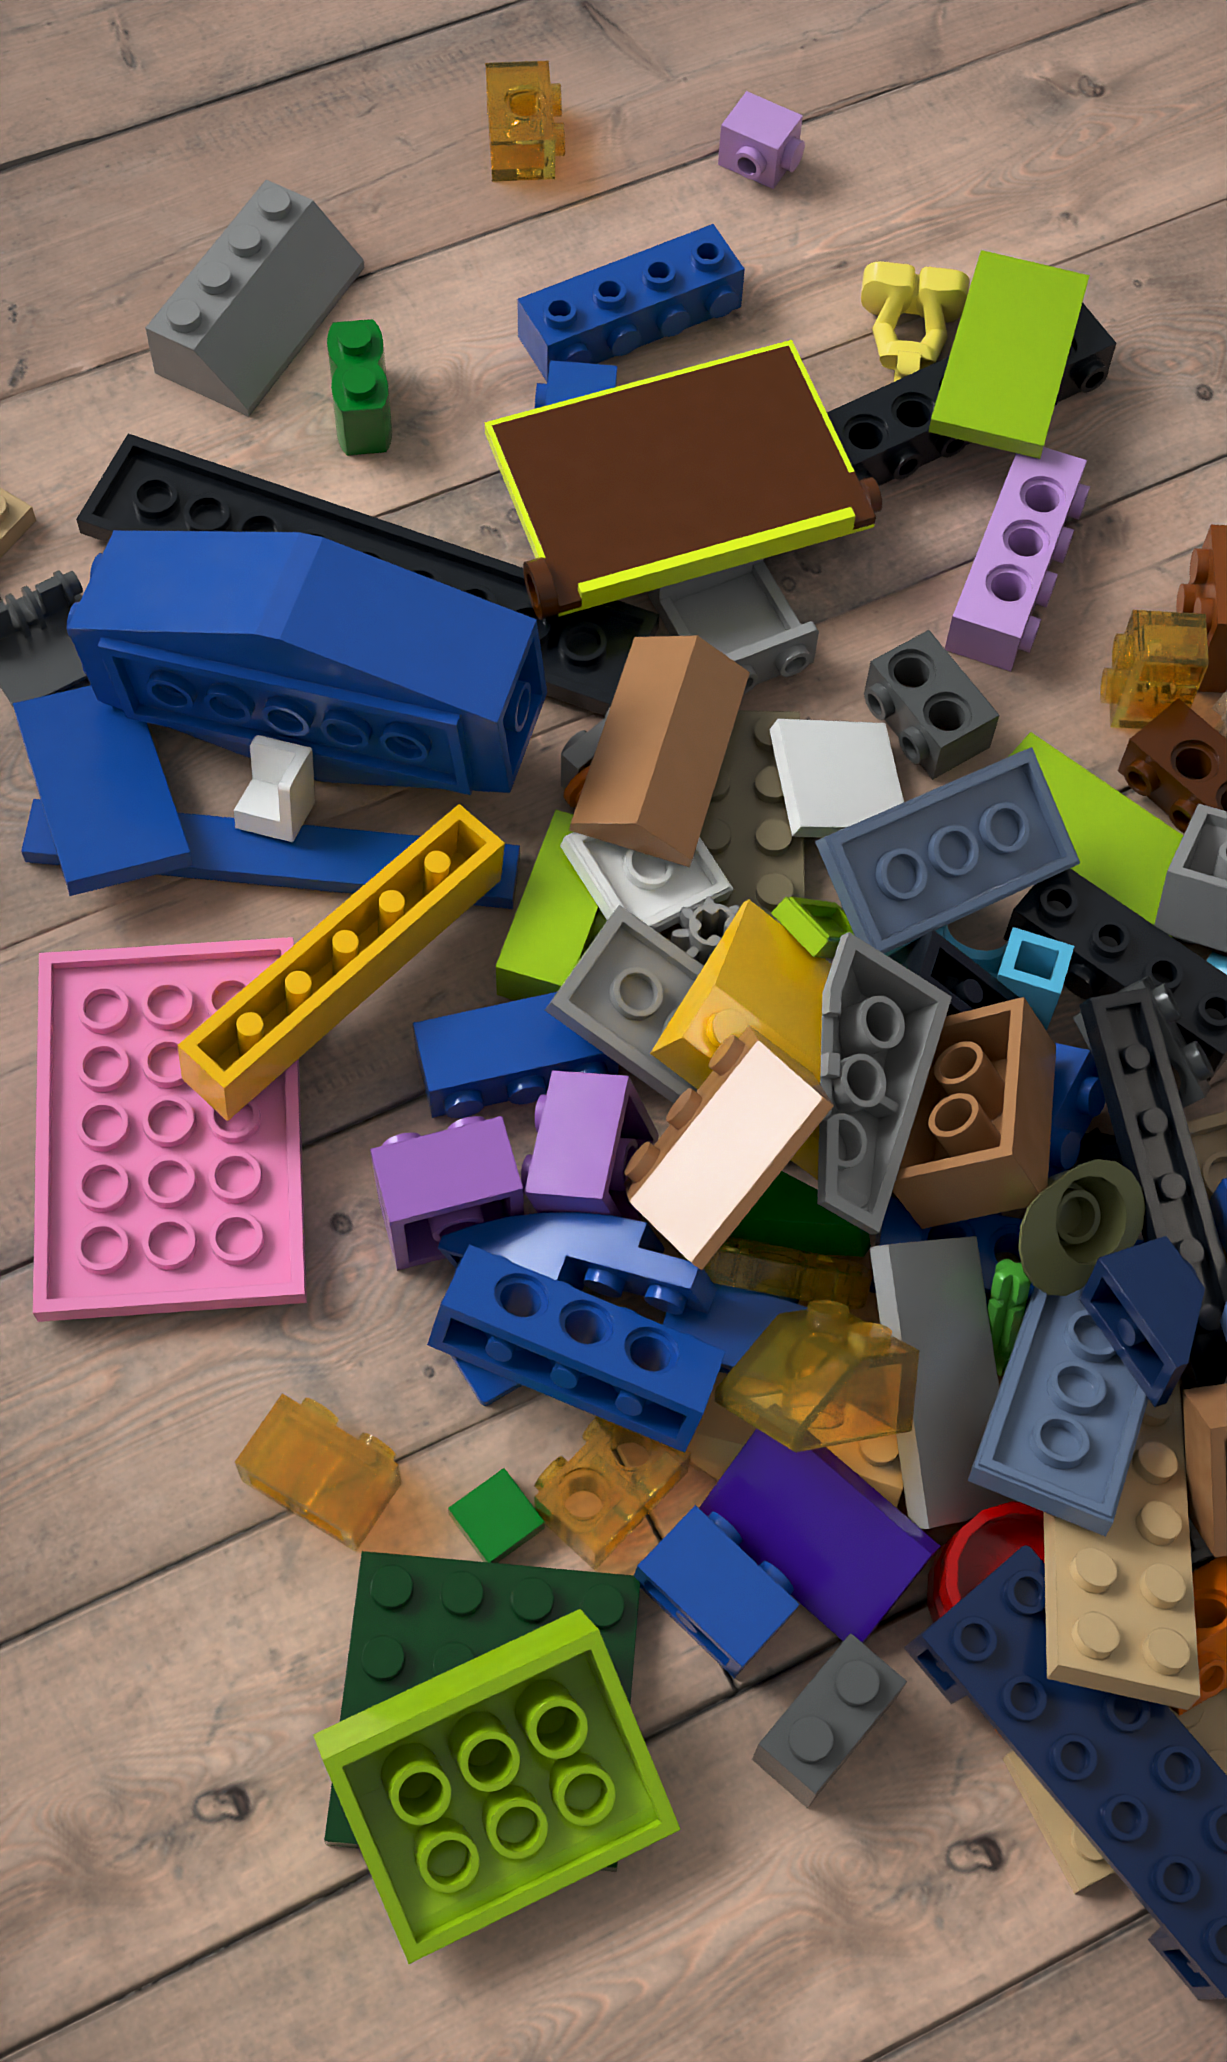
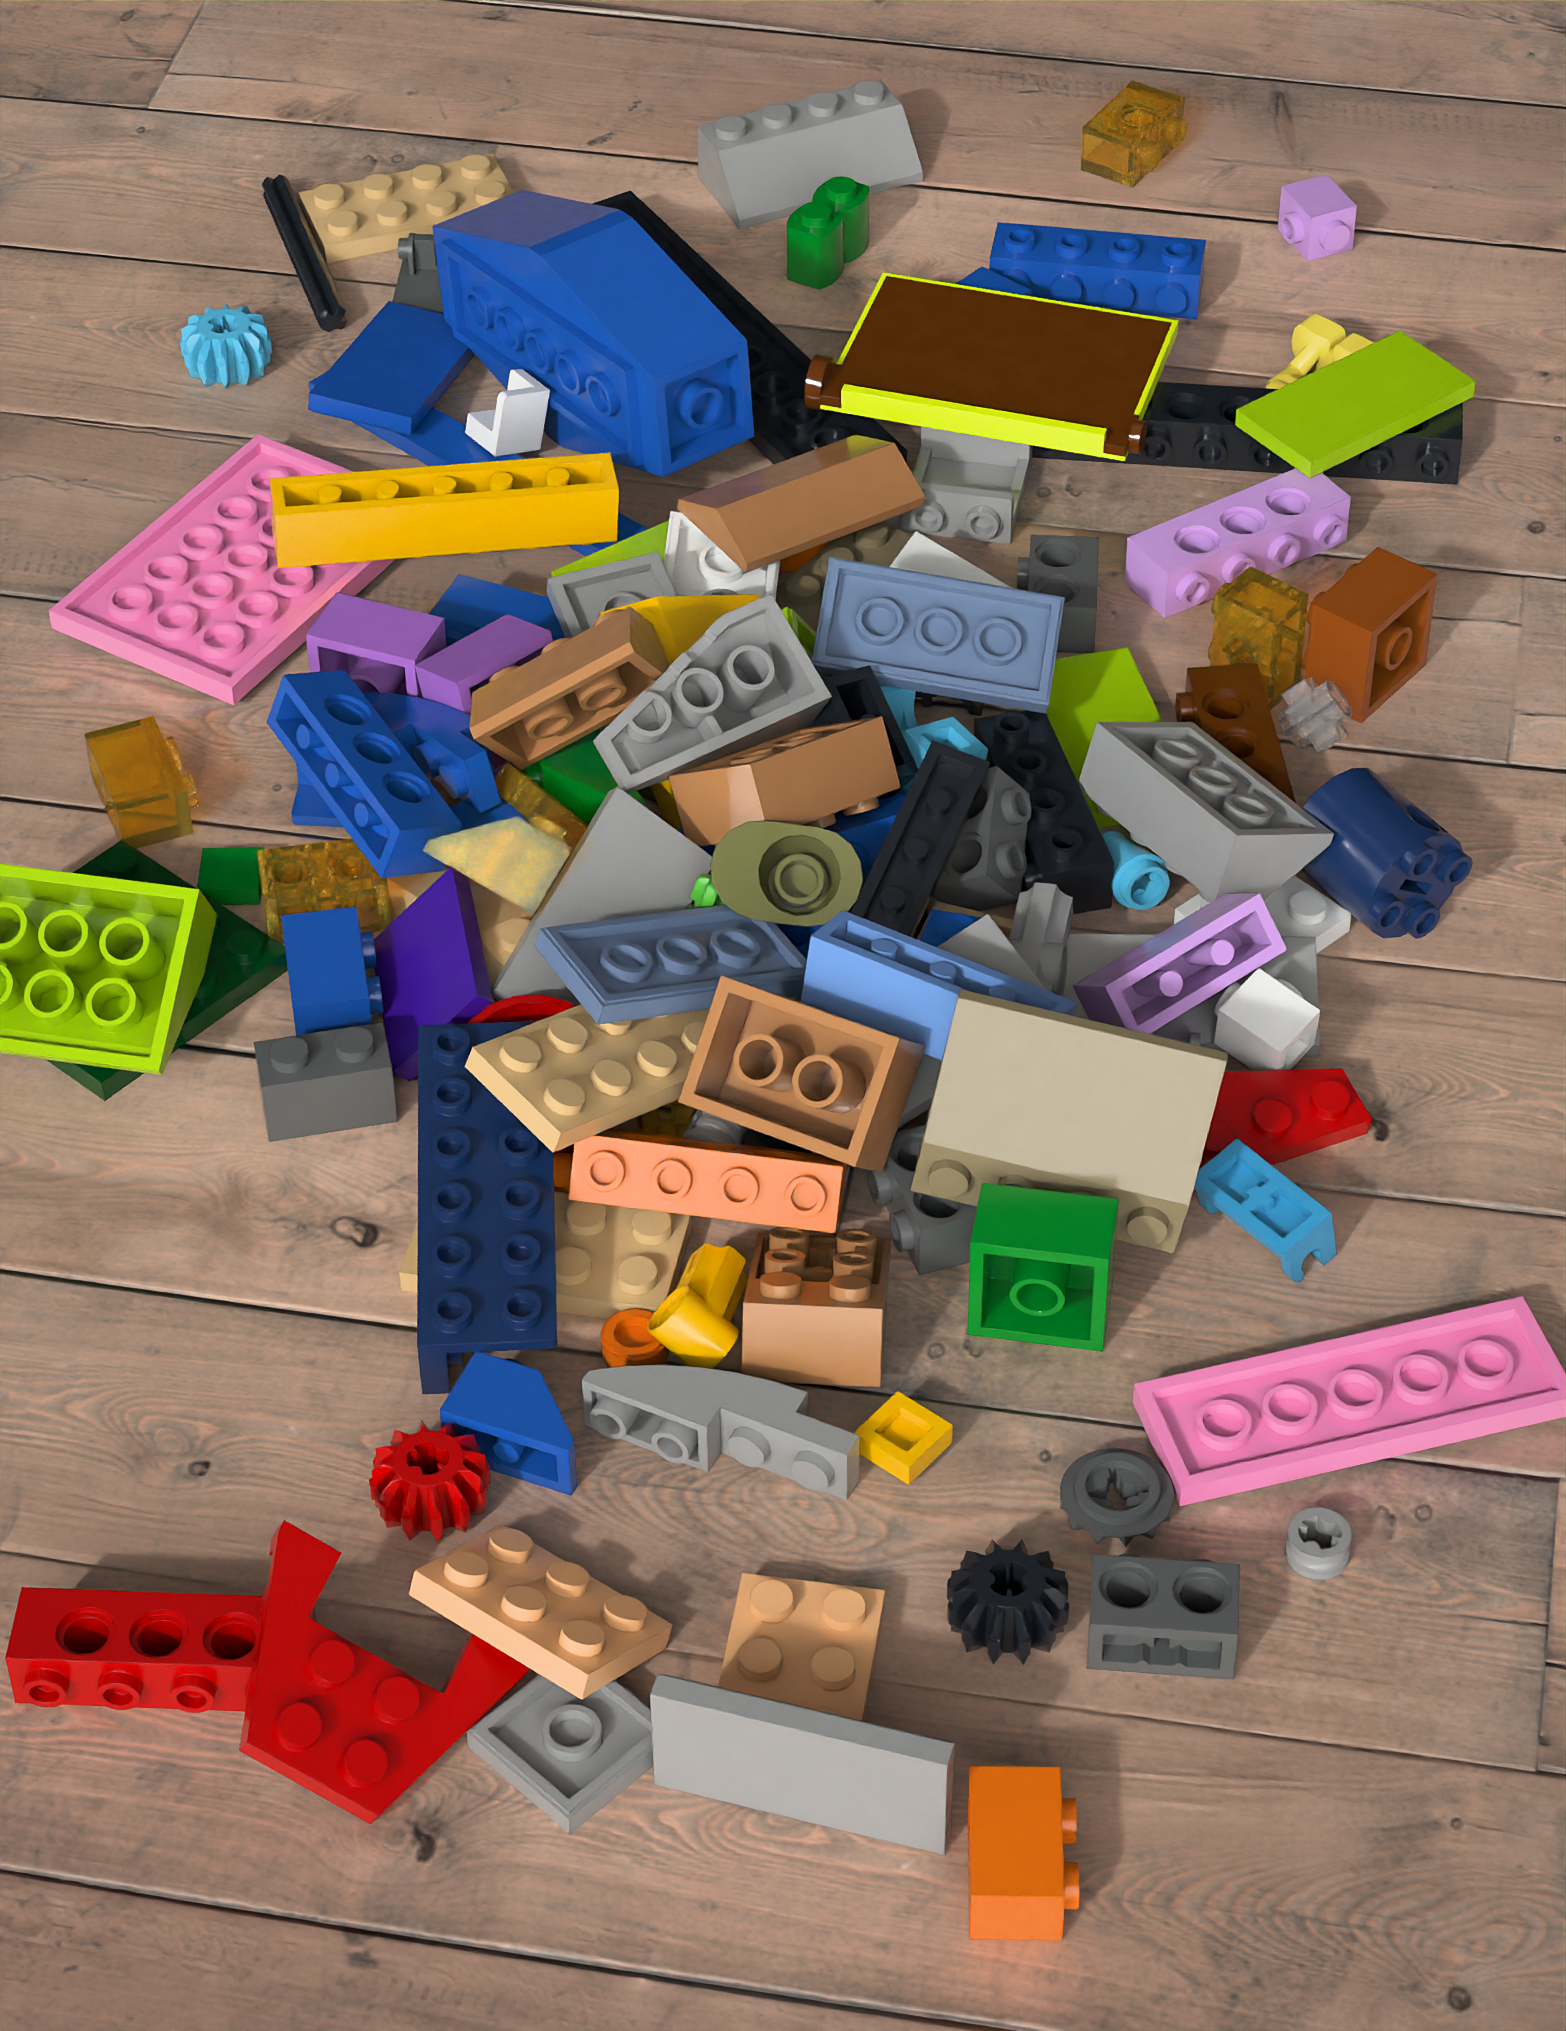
camera: 40 degrees right, 20 degrees down
(1148, 1312) = (779, 934): dark blue slope -> none

